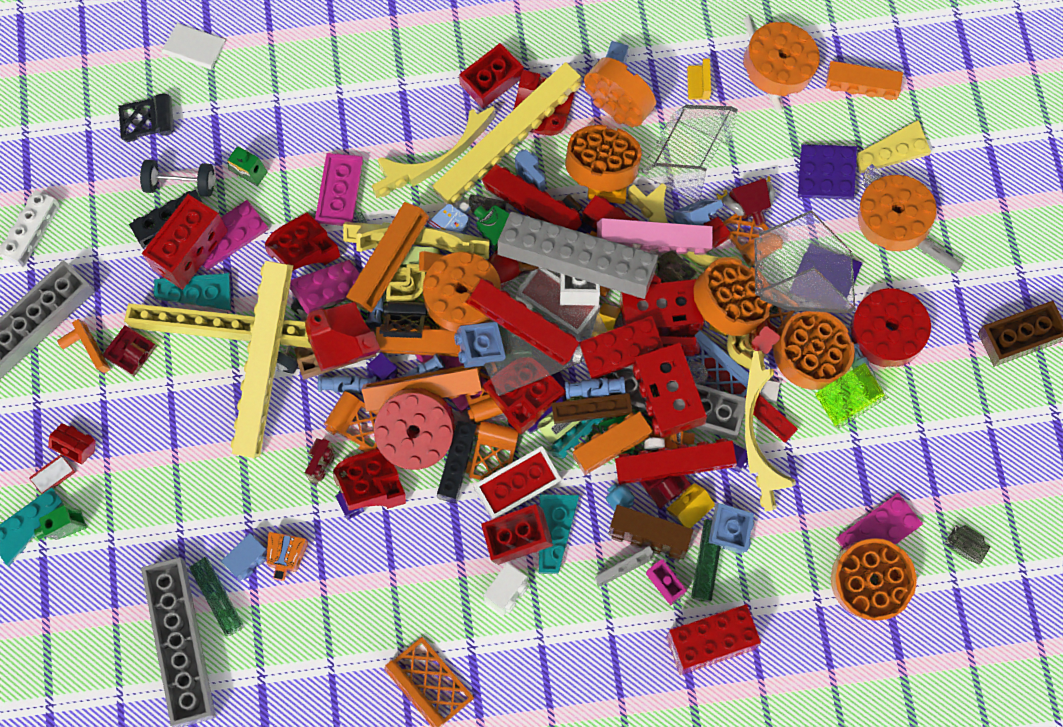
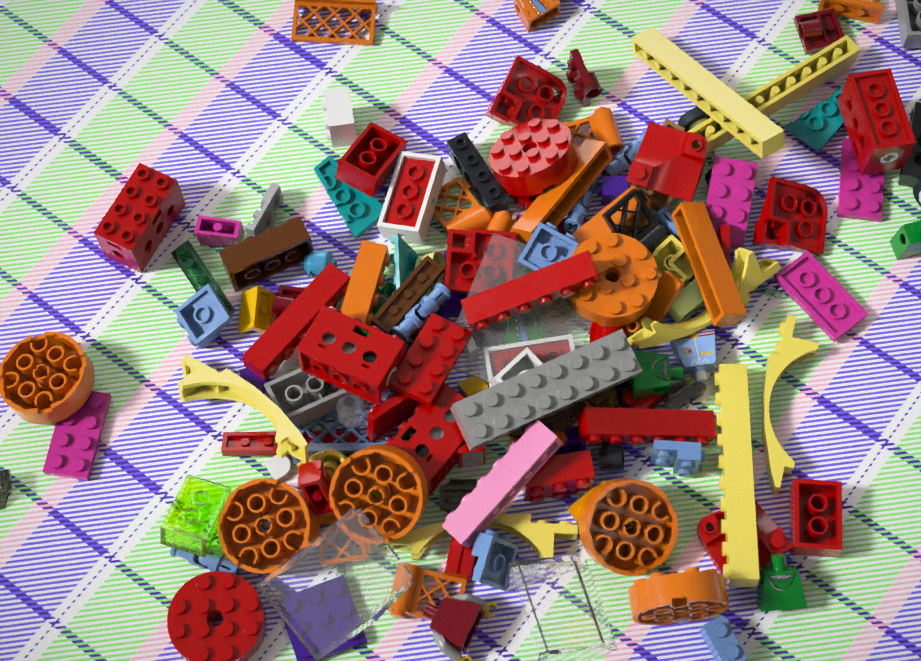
camera: 135 degrees right, 5 degrees down
(357, 266) = (724, 240): none -> red tile
(551, 57) = (780, 586): none -> green torso

